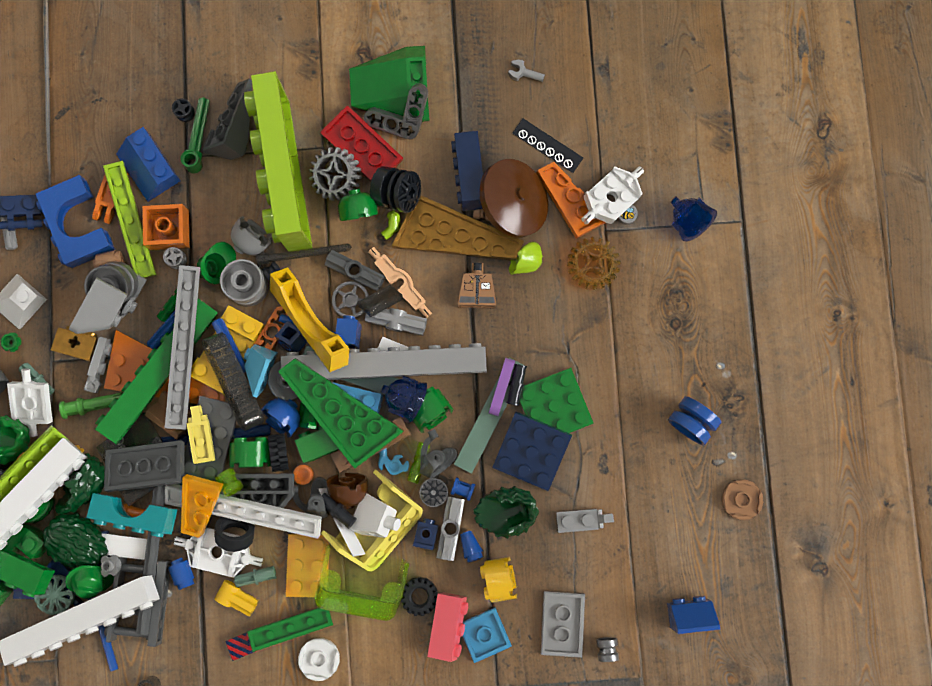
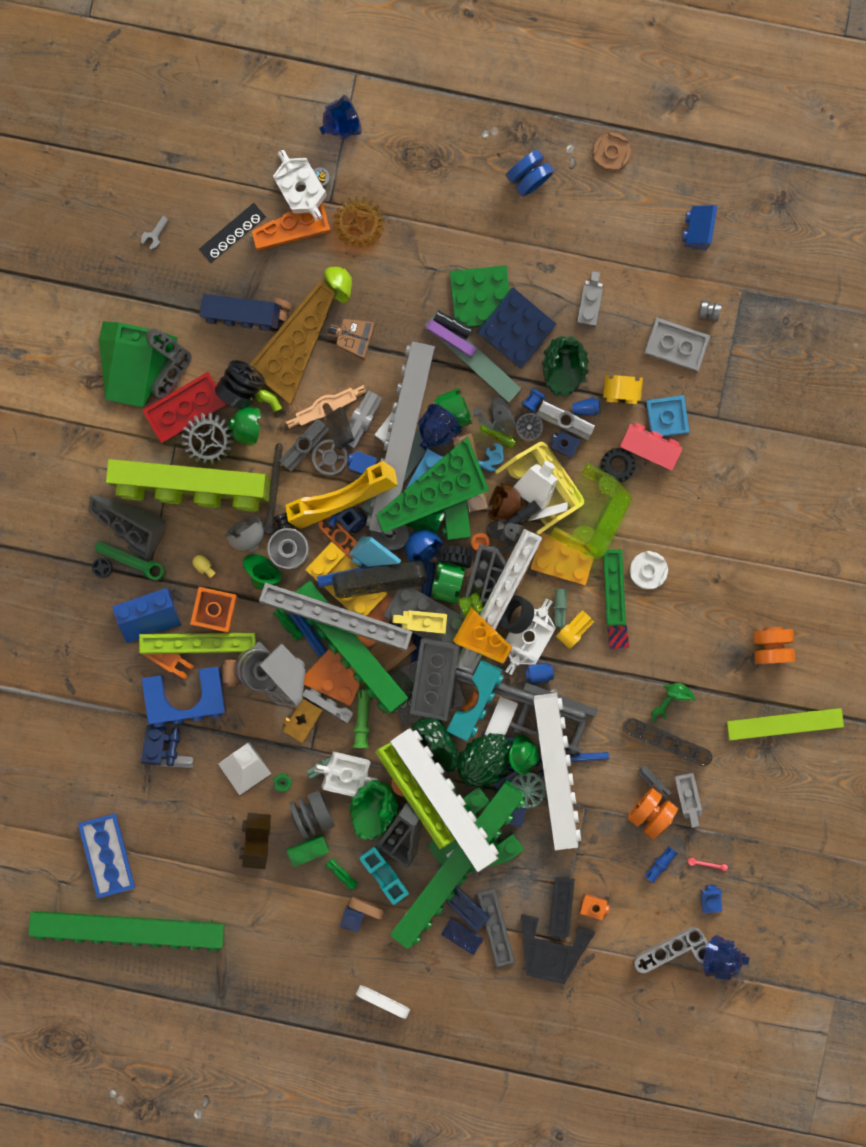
camera: 75 degrees left, 5 degrees up
(110, 565) = (520, 728): light grey plate -> none
(171, 255) = (244, 612): light grey wheel -> none
(210, 205) = (203, 565): none -> light yellow cylinder
(513, 198) = (279, 277): reddish brown dish -> none

